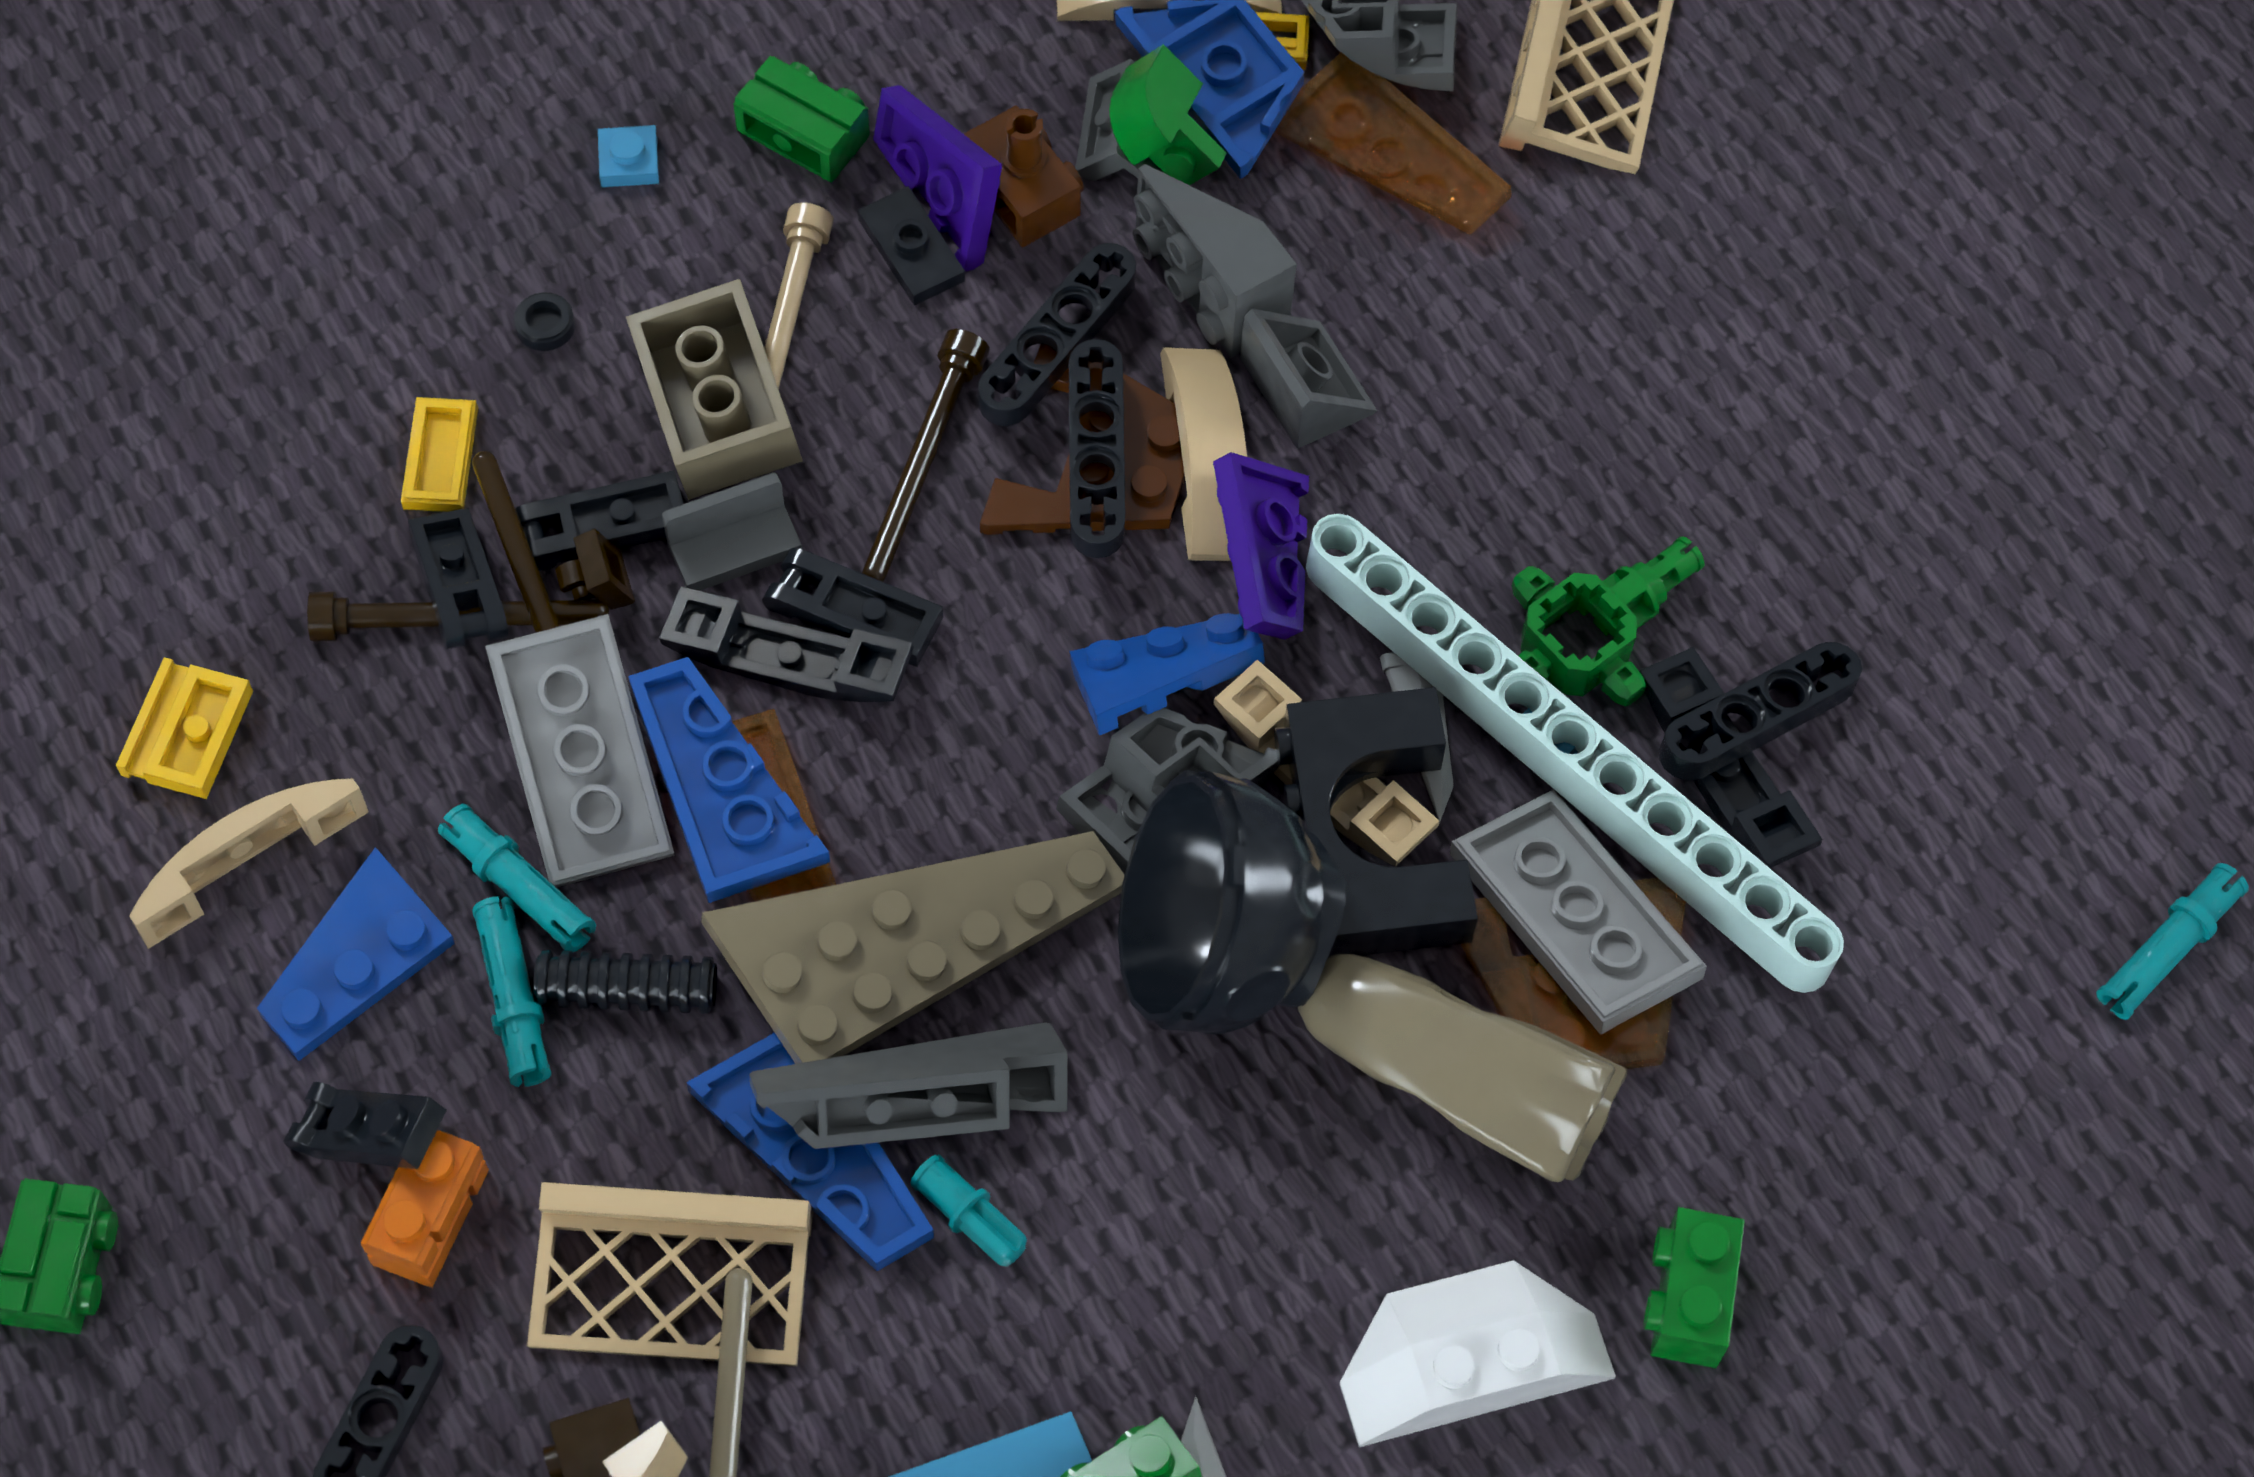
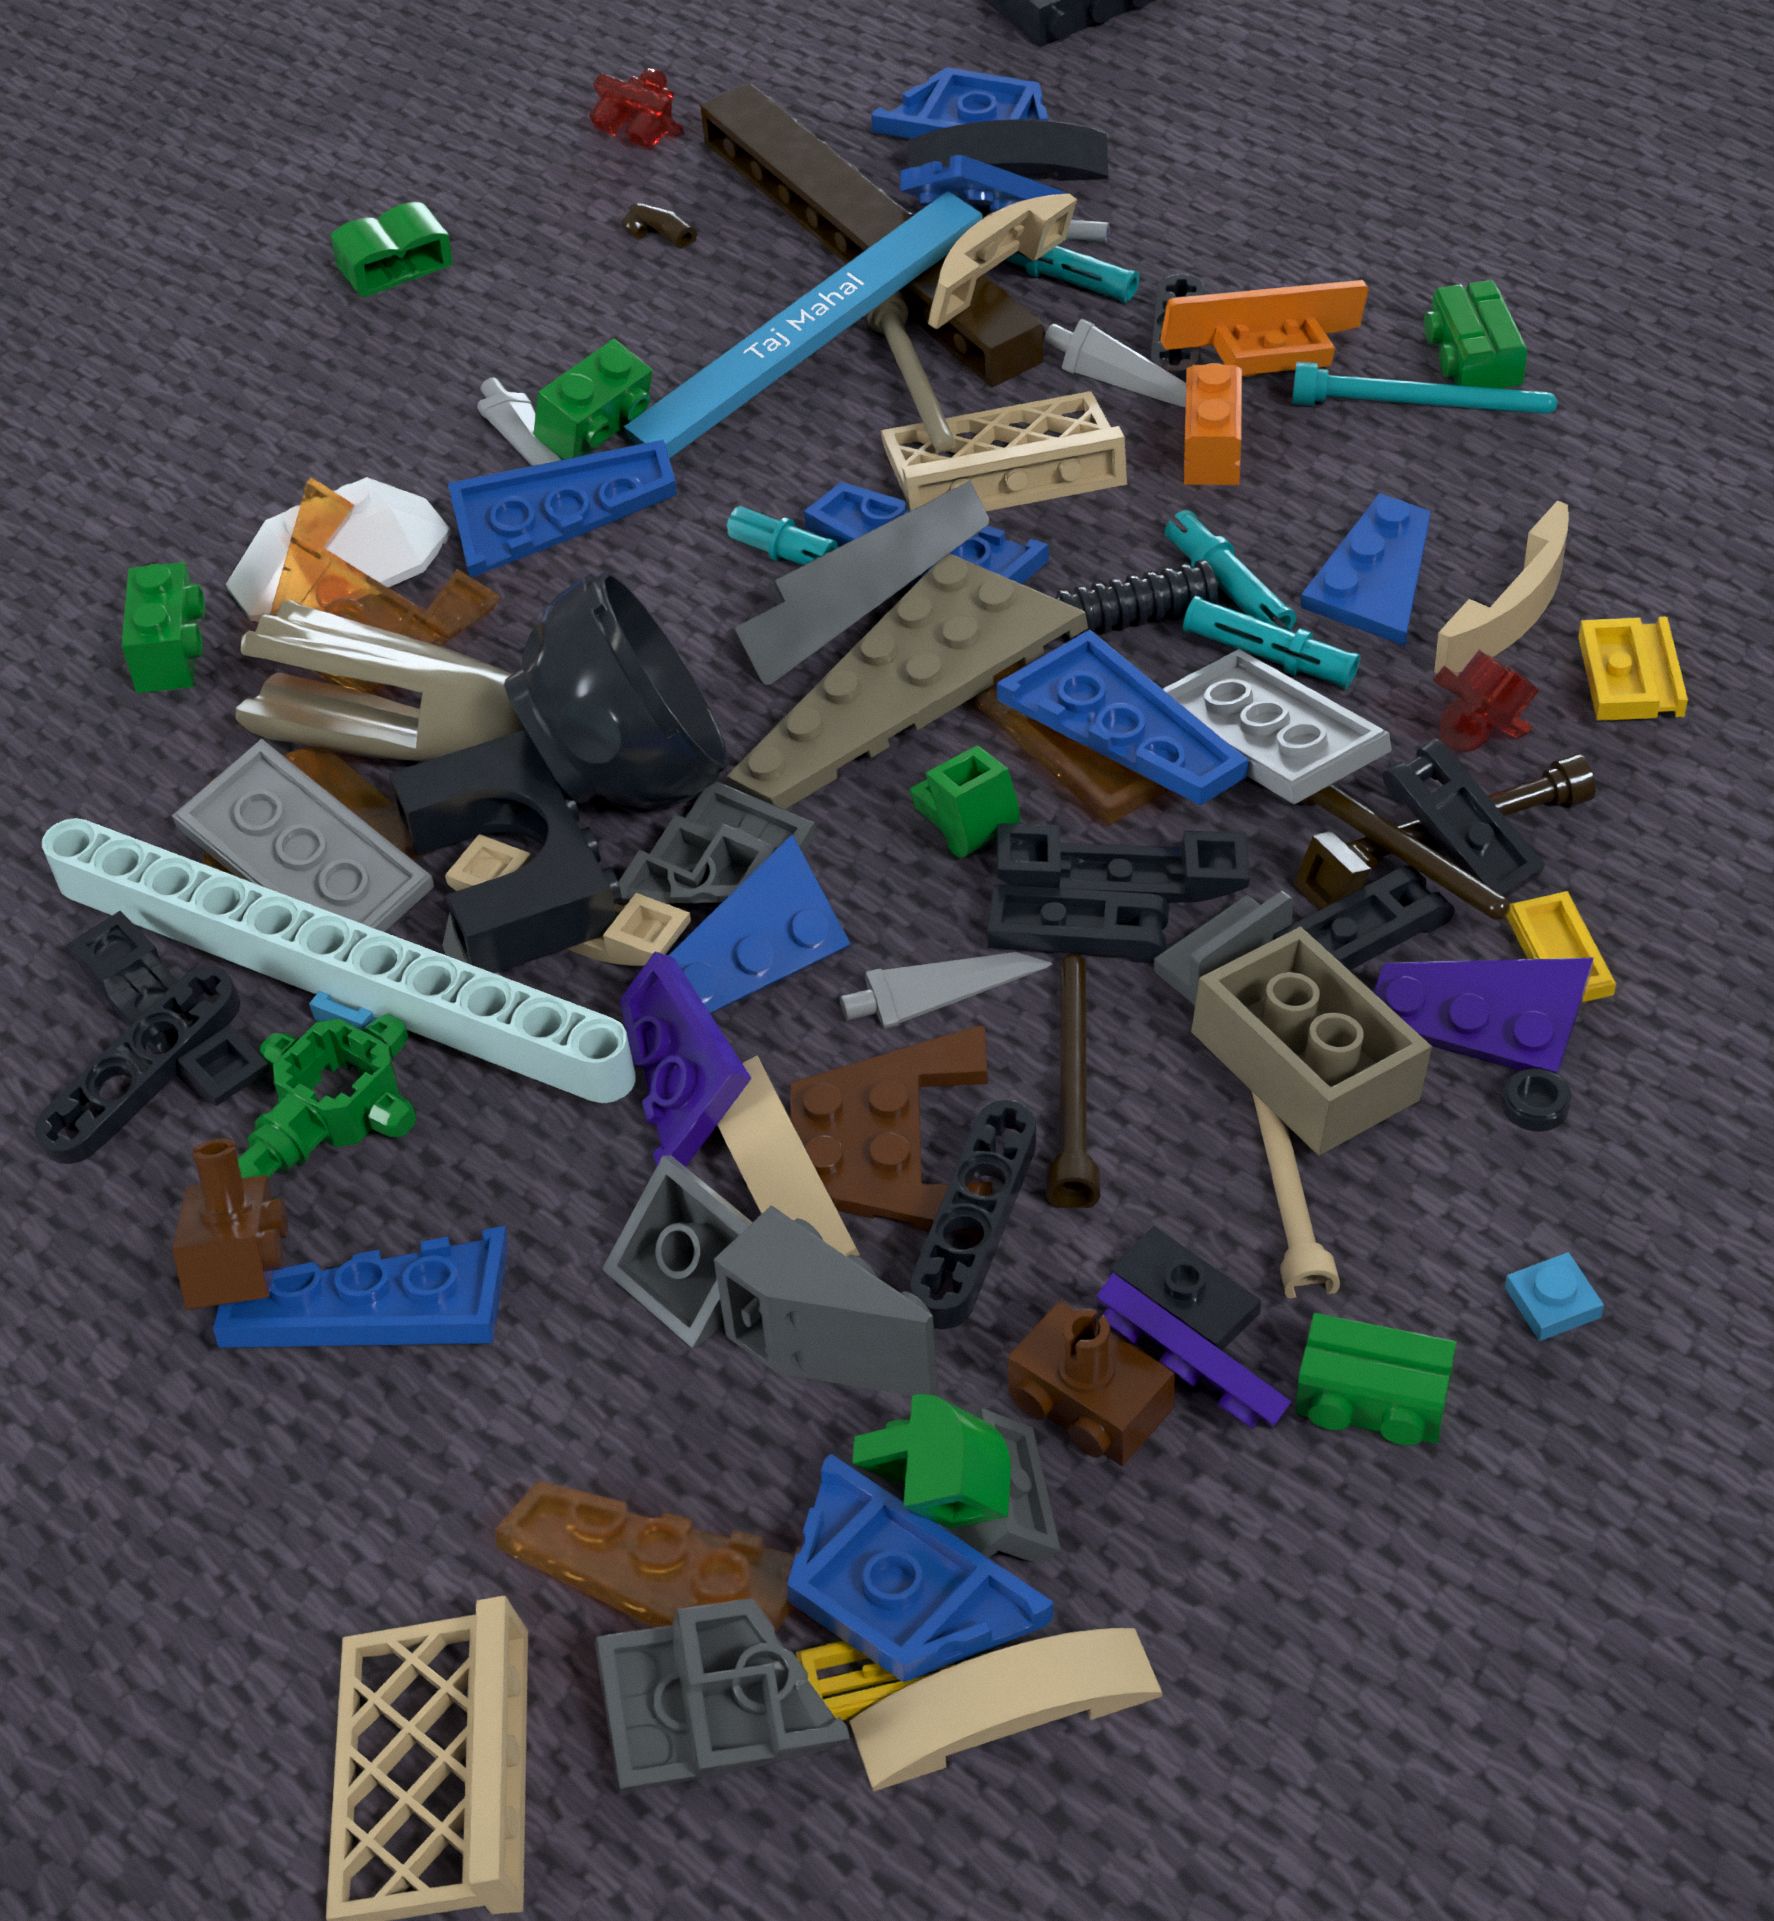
camera: 170 degrees right, 15 degrees down
(265, 1253) = (1315, 385): none -> teal piece
(282, 1334) = (1266, 326): none -> orange bracket
(360, 703) = (1489, 698): none -> clear red hips
(365, 1126) = (1286, 439): black plate -> none
(493, 1394) = (1107, 360): none -> light grey bar
(539, 396) = (1491, 1009): none -> dark purple wing
(907, 746) = (967, 800): none -> green brick
(1016, 593) = (919, 989): none -> light grey bar
(1096, 447) = (887, 1096): black beam -> none
(1227, 1366) = (552, 502): none -> blue wing
(1479, 1214) = (338, 588): none -> clear orange wing
(1572, 424) = (378, 1300): none -> blue wing
(1693, 476) = (227, 1231): none -> reddish brown brick

